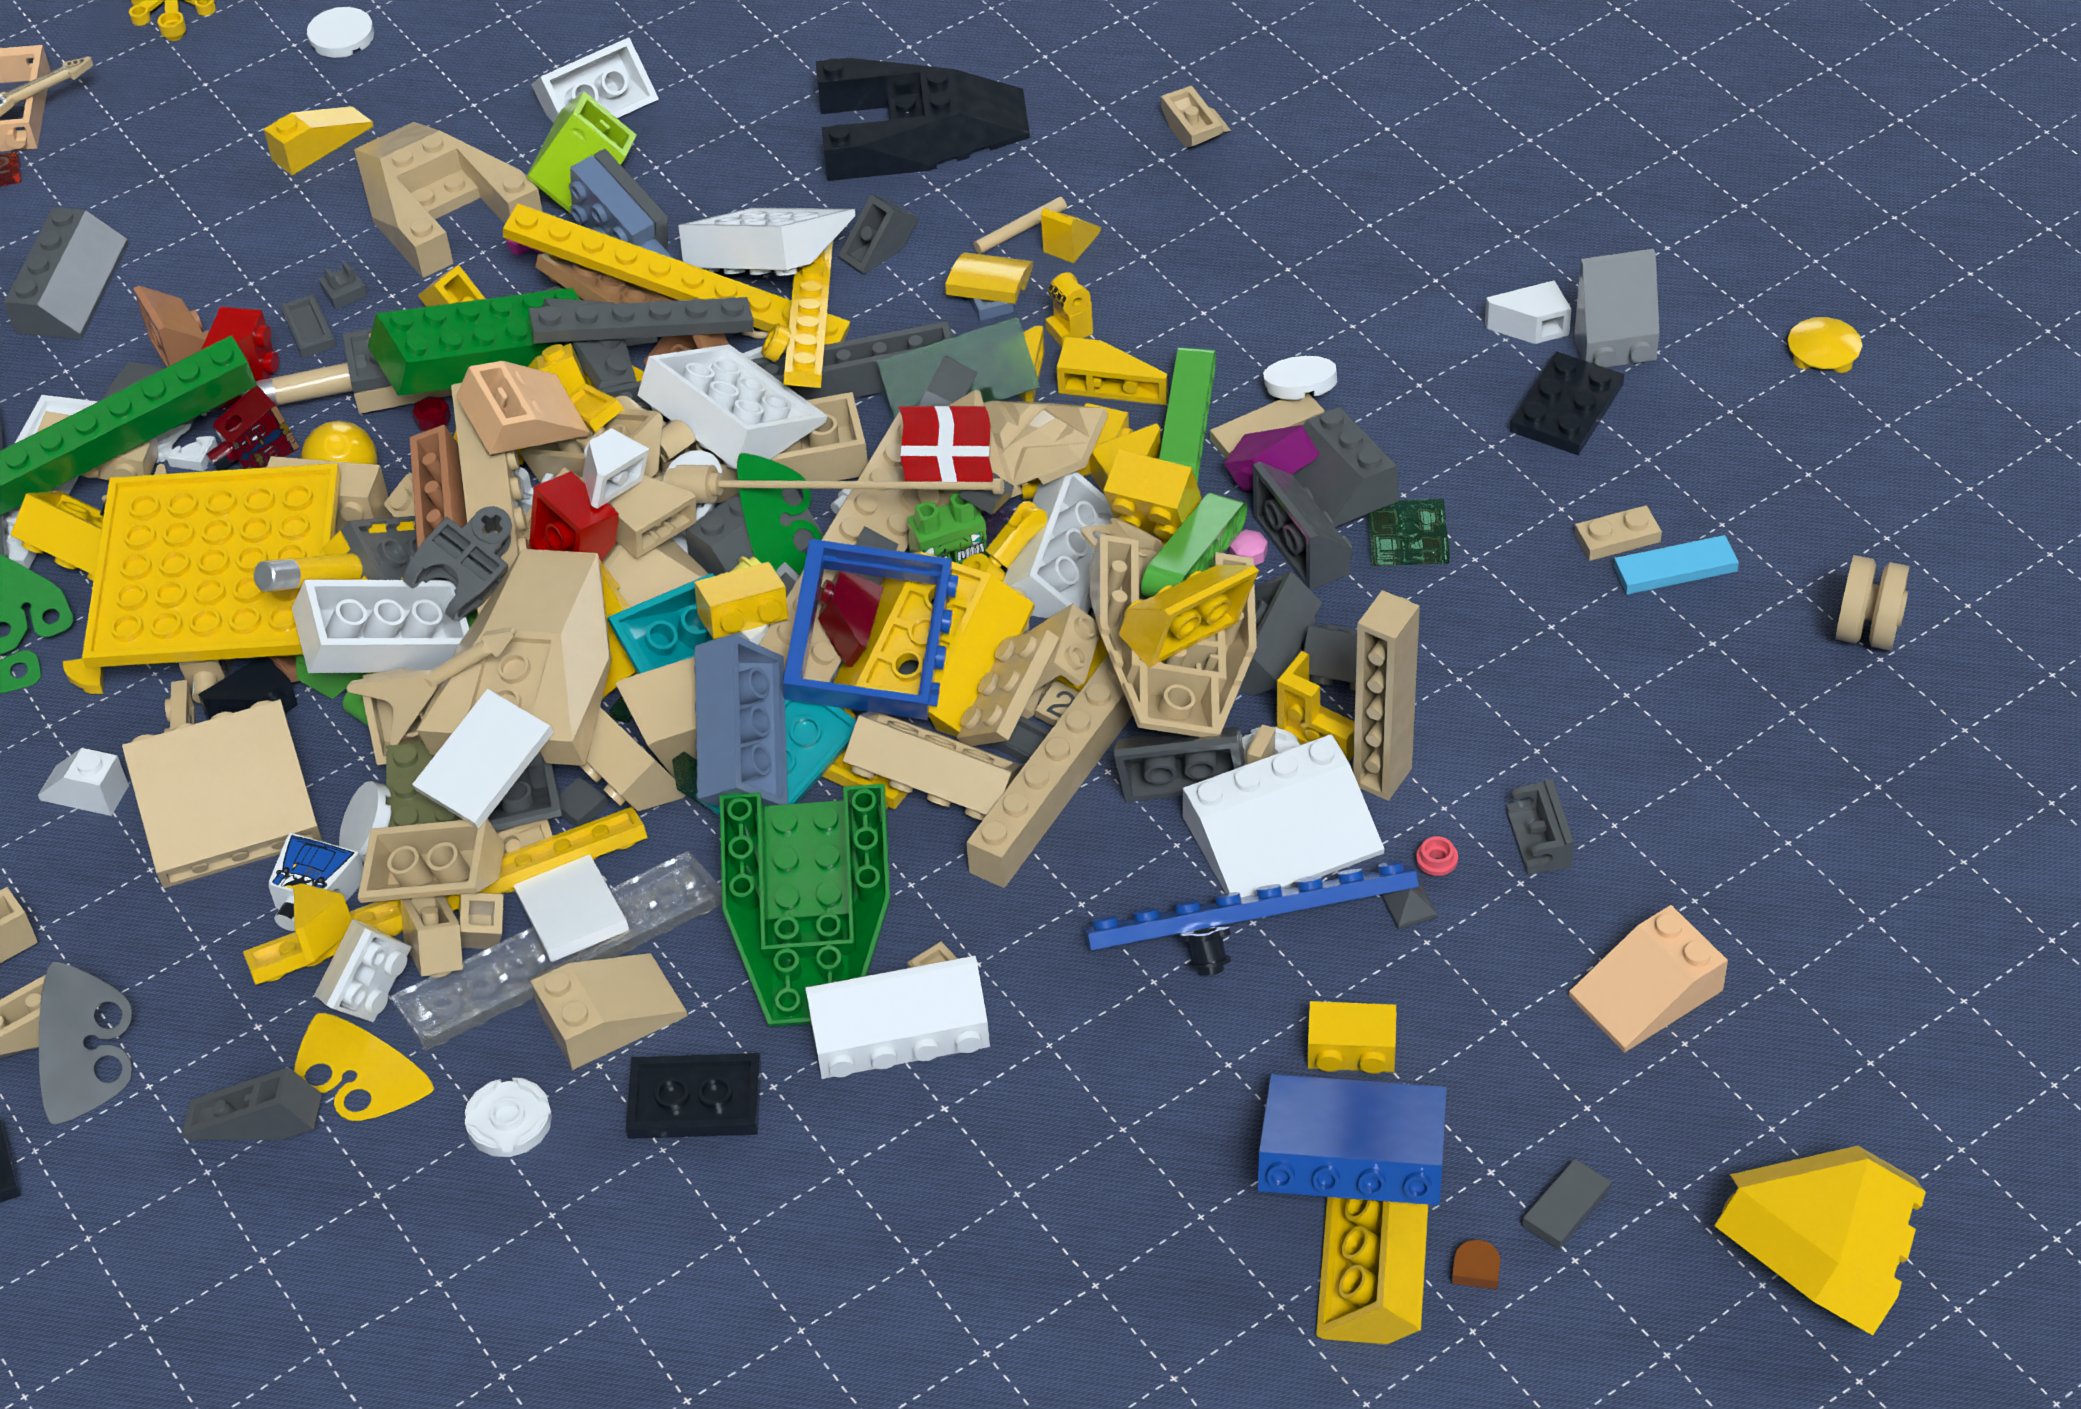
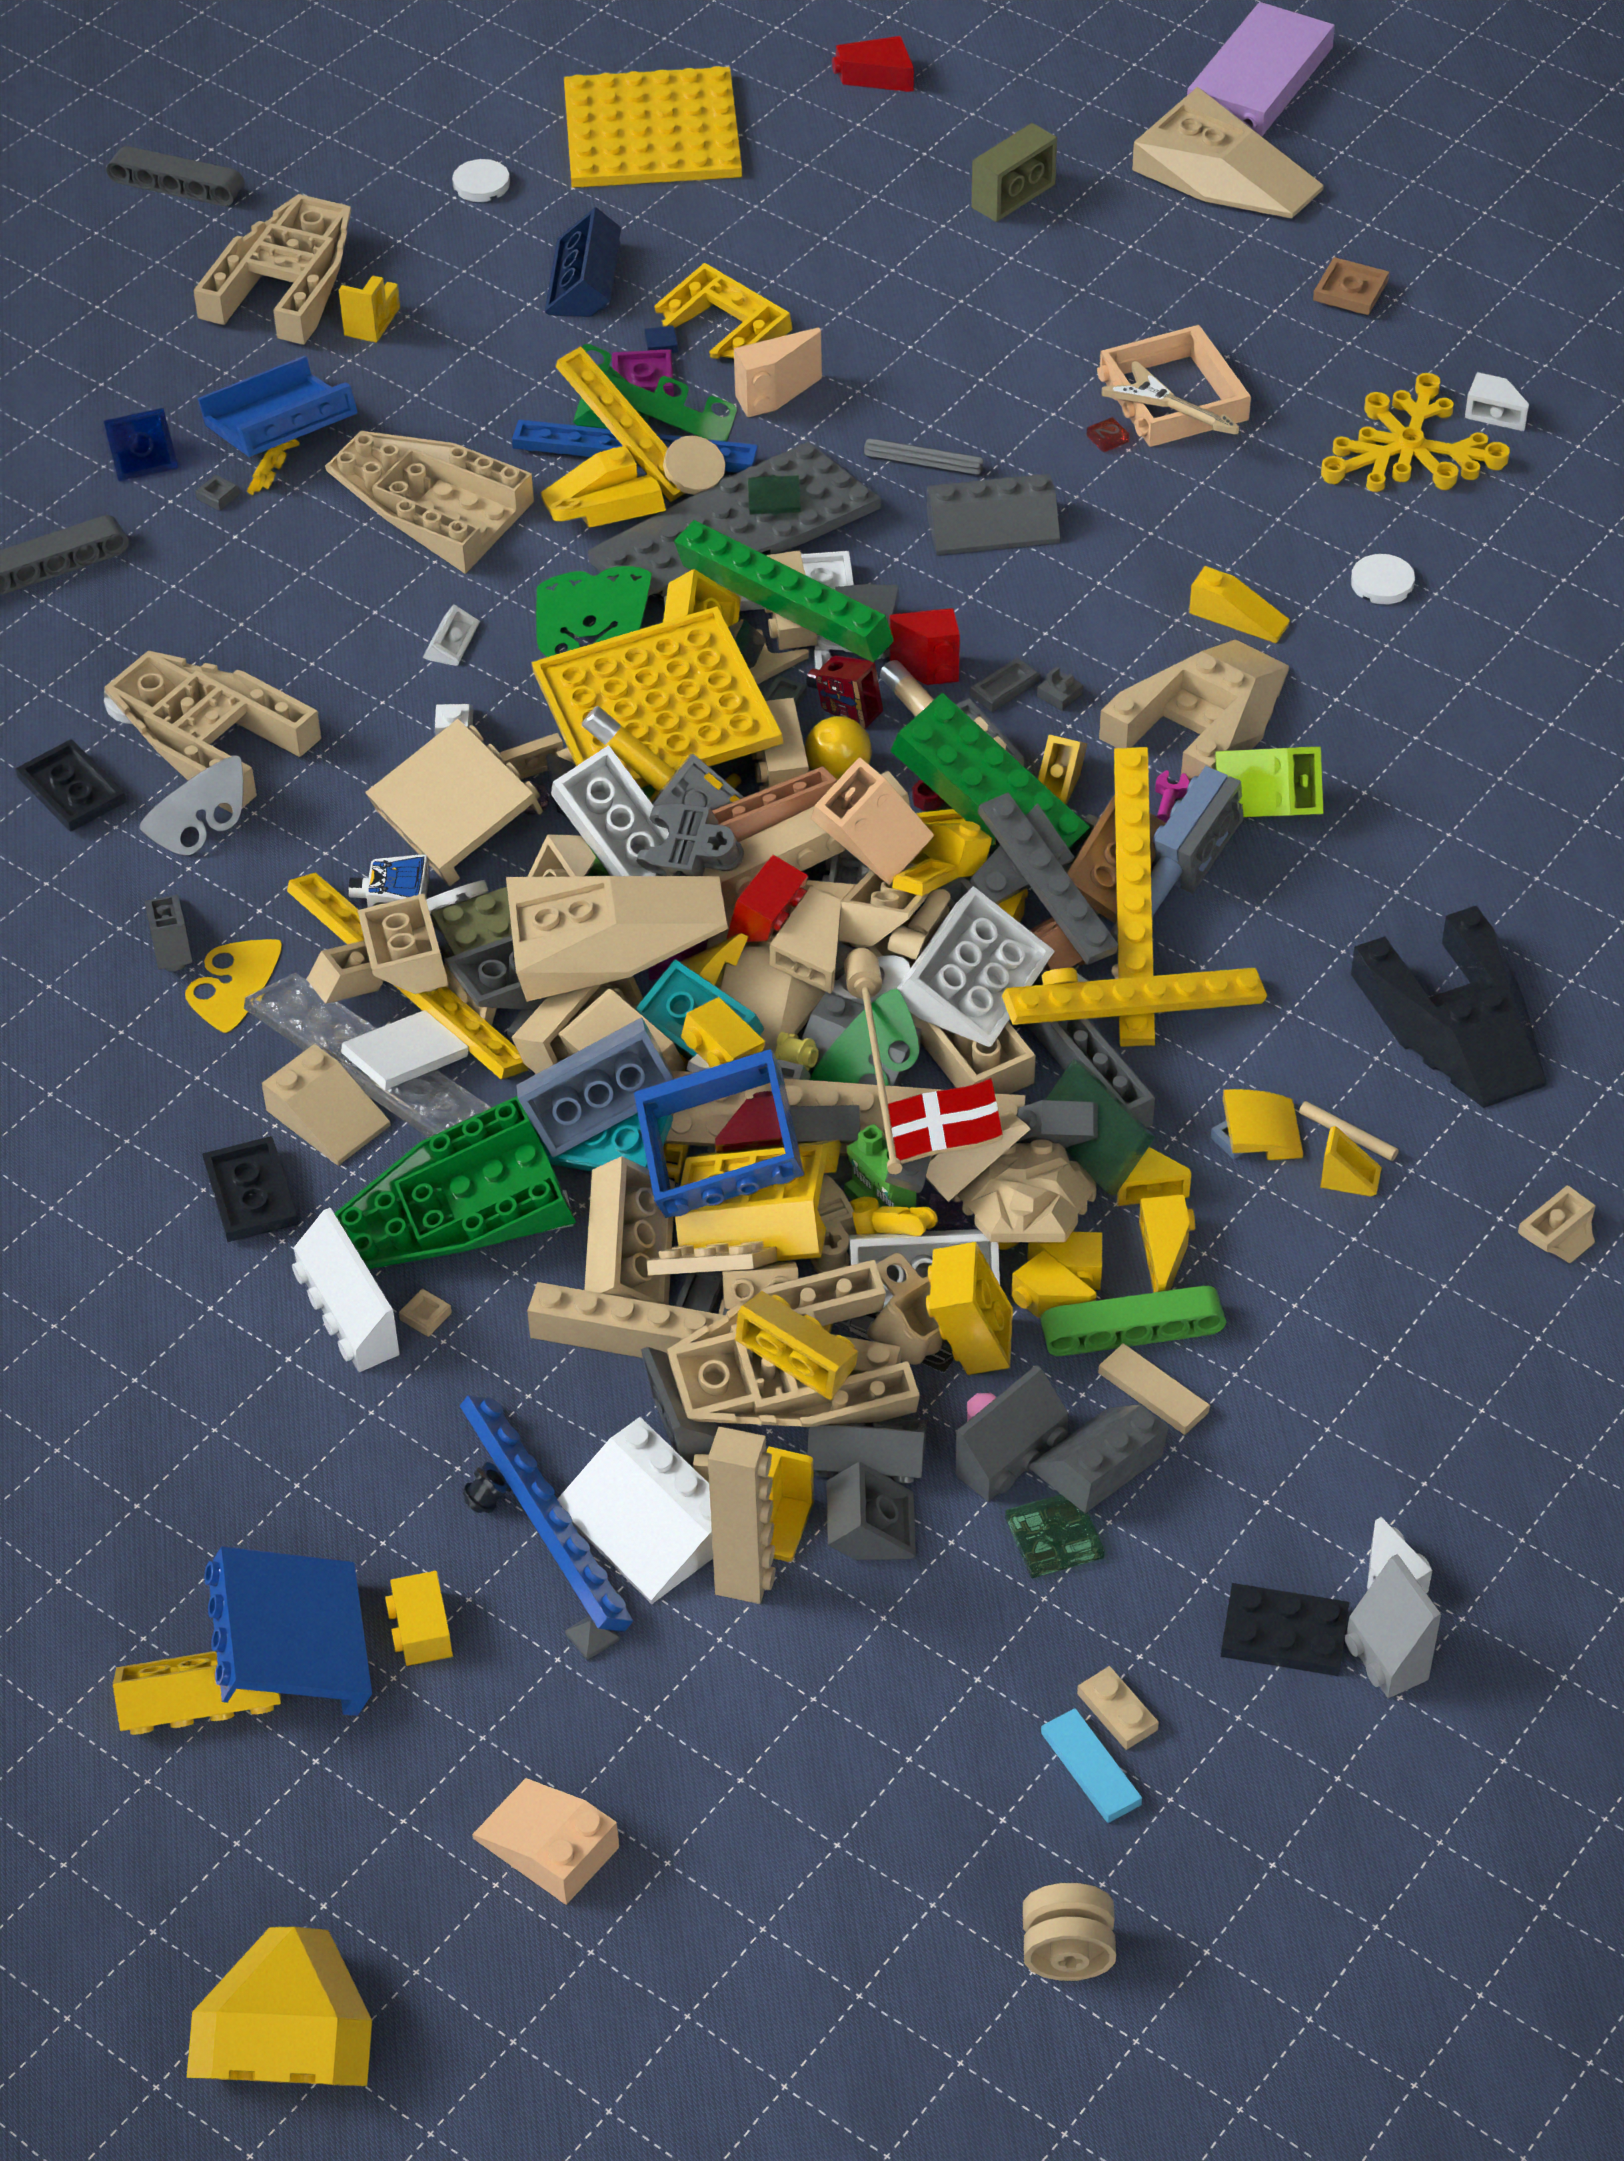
camera: 70 degrees right, 0 degrees up
(170, 325) = (946, 586): nougat slope -> none
(319, 919) = (335, 896): yellow slope -> none
(363, 971) = (296, 939): white slope -> none
(412, 690) = (552, 863): tan piece -> none
(480, 919) = (375, 999): tan brick -> none
(483, 758) = (484, 924): white tile -> none
(508, 1117) = (207, 1084): white tile -> none
(609, 76) = (1380, 770): white slope -> none
(612, 466) = (812, 896): white slope -> none
(761, 239) = (1219, 939): white slope -> none
(878, 233) = (1280, 1025): dark grey slope -> none
(1071, 309) = (1230, 1189): yellow leg -> none
(1192, 547) = (930, 1351): bright green beam -> none
(1281, 448) = (1085, 1389): magenta slope -> none
(1300, 375) = (1219, 1395): white tile -> none
(1437, 848) = (650, 1633): coral plate -> none
(1476, 1265) = (209, 1767): dark orange tile -> none
(1541, 828) = (707, 1717): dark grey hinge -> none
(1567, 1204) = (288, 1821): dark grey tile -> none
(1824, 344) = (1467, 1844): yellow dish -> none

